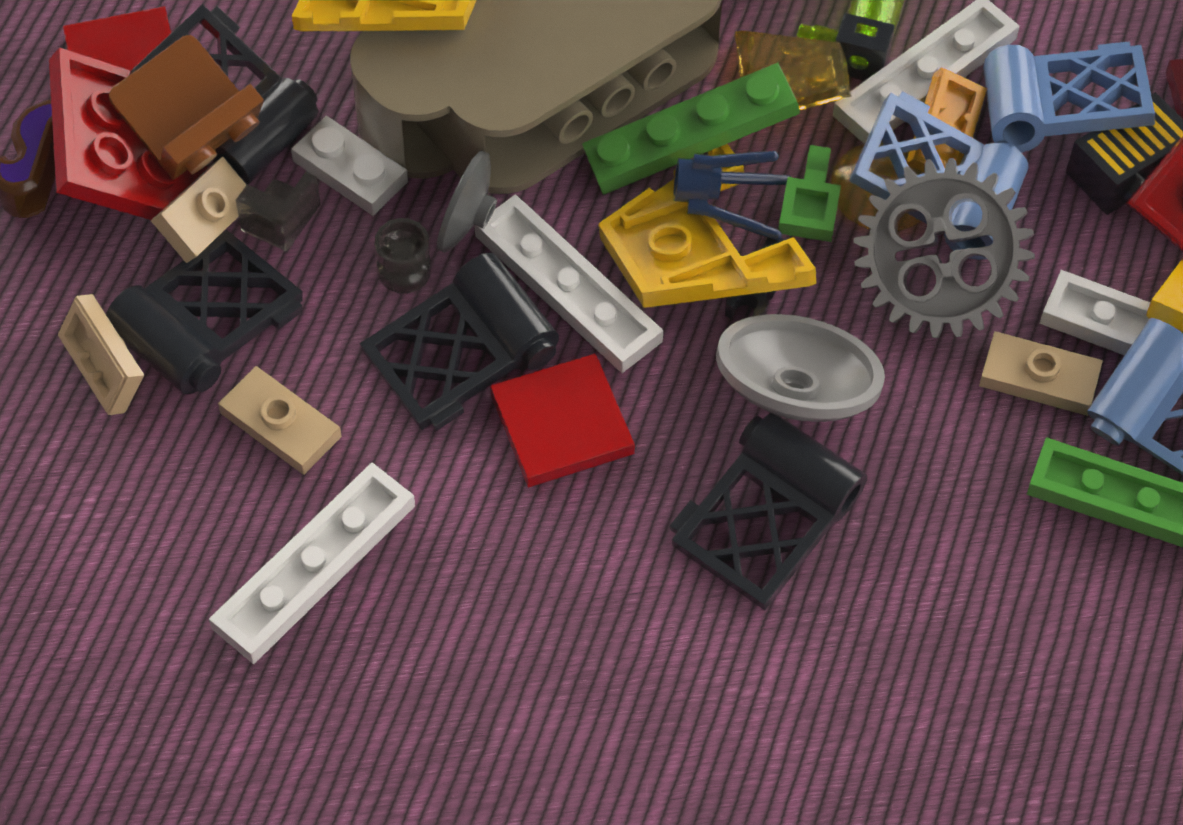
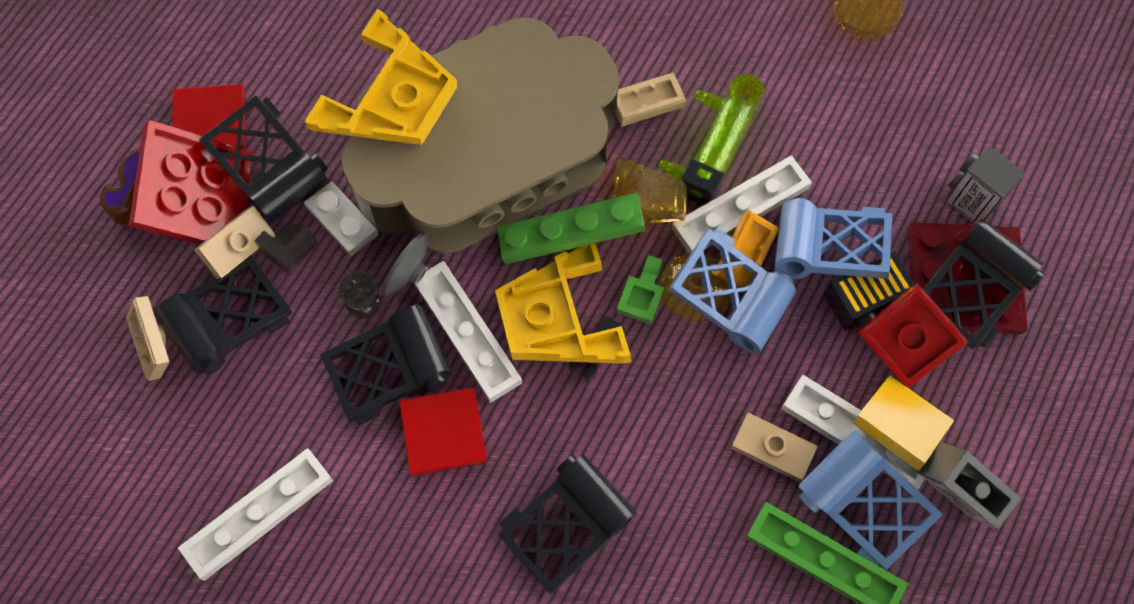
camera: 10 degrees right, 10 degrees up
(185, 107) = (228, 170): dark orange bracket -> none
(279, 420) = (257, 402): tan plate -> none
(702, 179) = (566, 274): dark blue plant -> none
(799, 367) = (606, 425): light grey dish -> none
(936, 198) = (723, 385): light grey gear -> none

